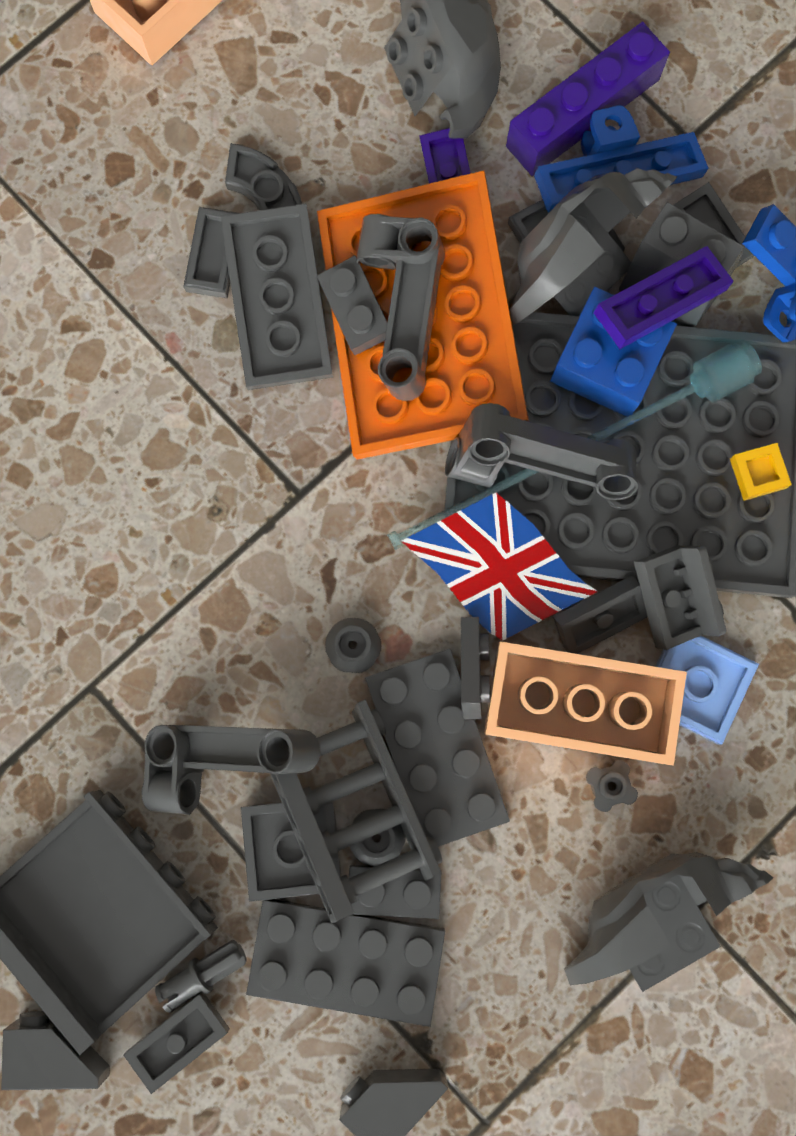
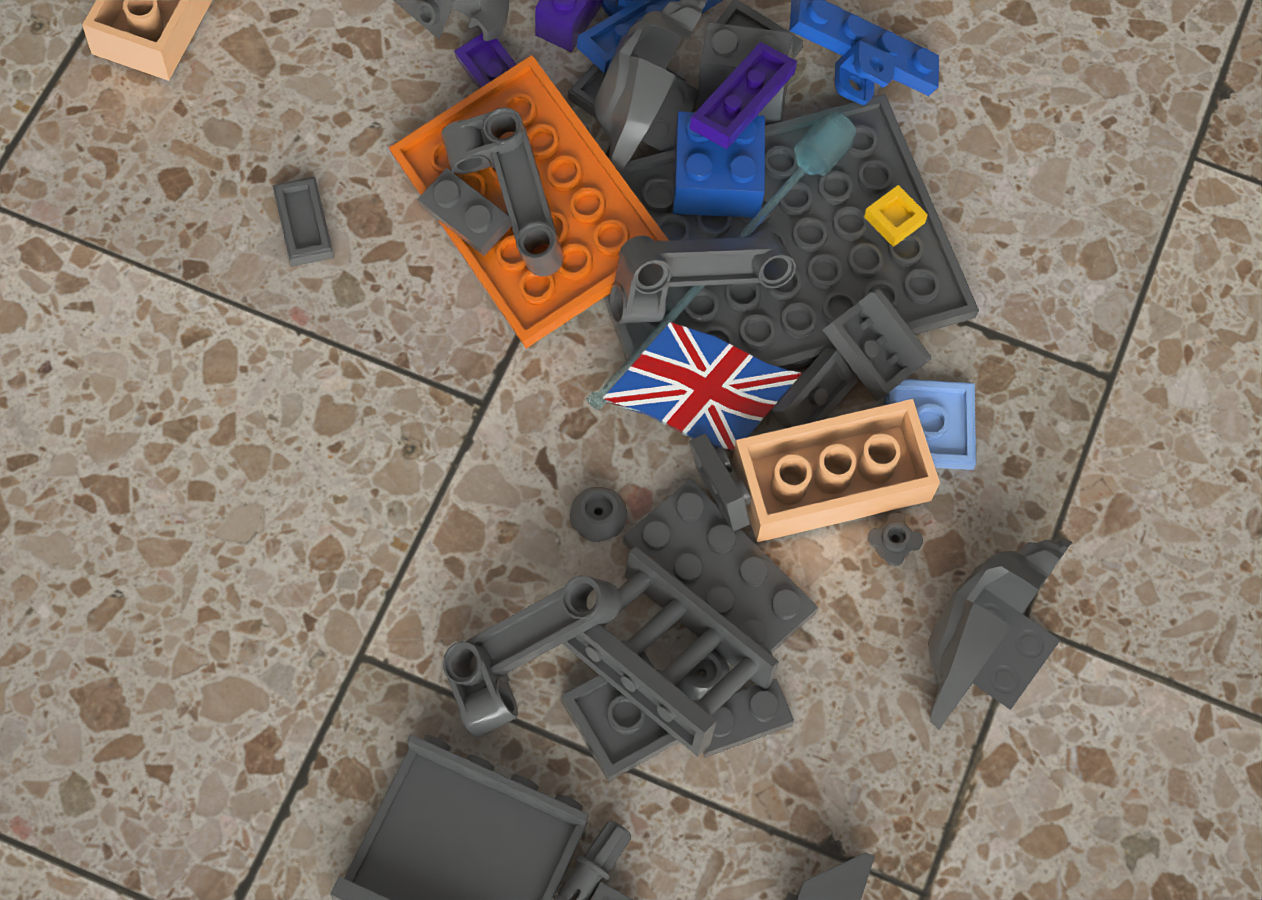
camera: 30 degrees left, 15 degrees down
(259, 179) = (330, 147): dark grey tile -> none
(276, 297) = (386, 235): dark grey plate -> none
(346, 966) = (725, 800): dark grey plate -> none

